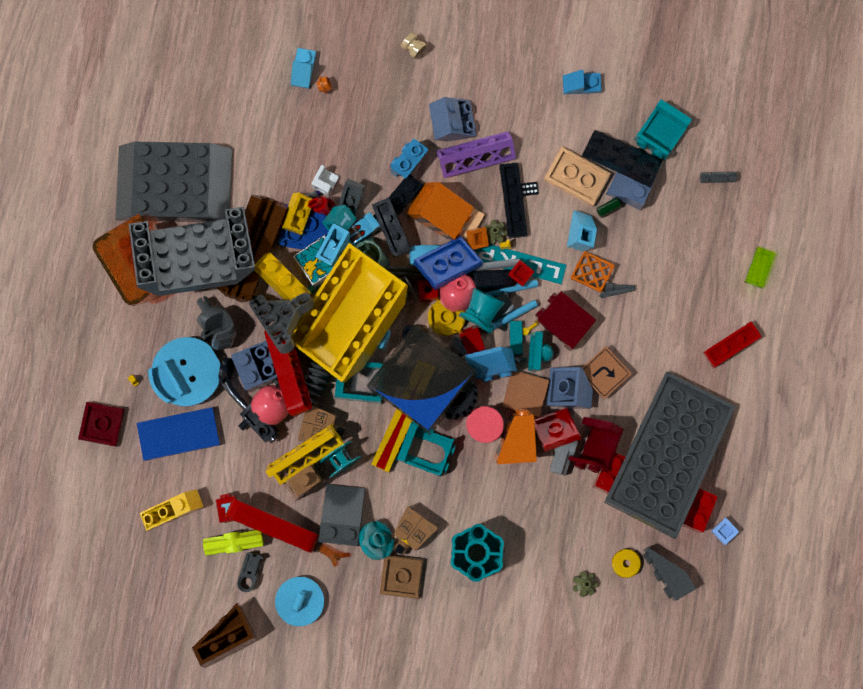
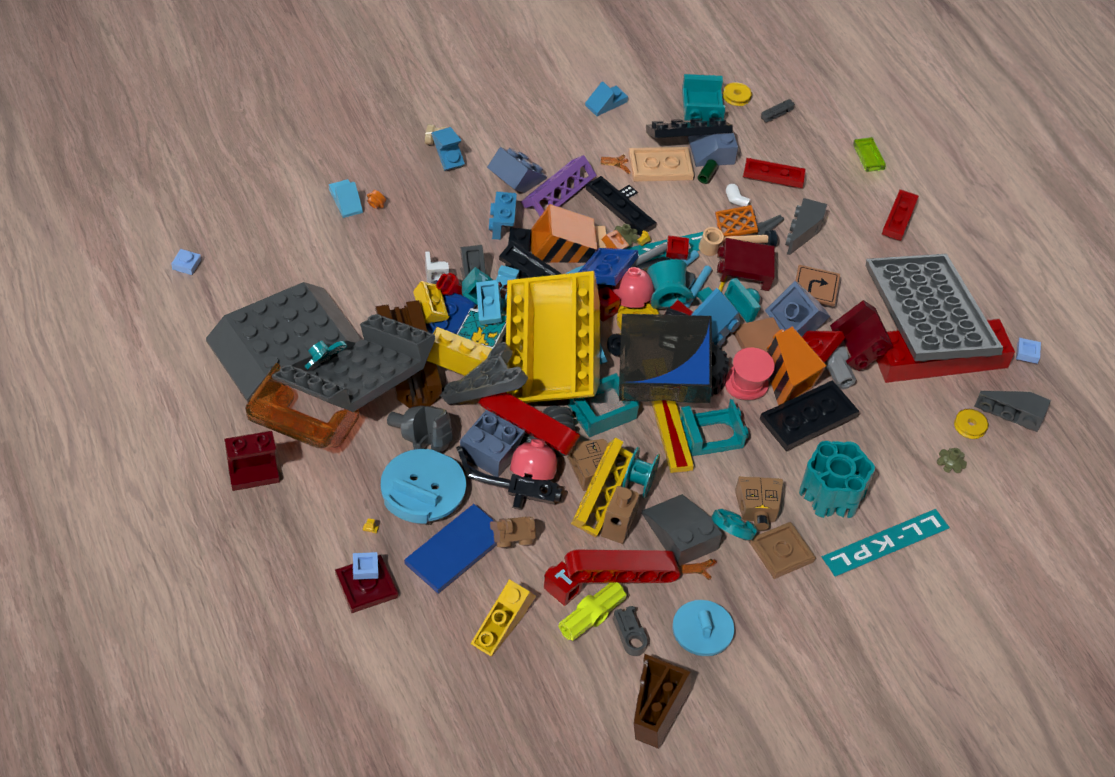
camera: 35 degrees left, 30 degrees down
(77, 284) = (251, 460): none -> dark red panel
(103, 415) = (365, 565): none -> light blue plate
(147, 63) = (186, 262): none -> light blue plate
(178, 220) = (322, 353): none -> teal animal
(221, 450) = (513, 529): none -> medium nougat piece
(411, 66) = (447, 147): none -> dark azure slope
(481, 616) = (885, 542): none -> teal sticker
(507, 482) = (809, 415): none -> black plate
(541, 154) = (616, 161): none -> clear orange bar
(582, 232) = (703, 195): medium azure slope -> none
(605, 304) = (713, 237): none -> light nougat piece
(611, 244) = (735, 197): none -> white arm
(647, 309) = (808, 223): none -> dark grey slope
(661, 241) = (774, 172): none -> red plate
(699, 146) = (737, 94): none -> yellow piece

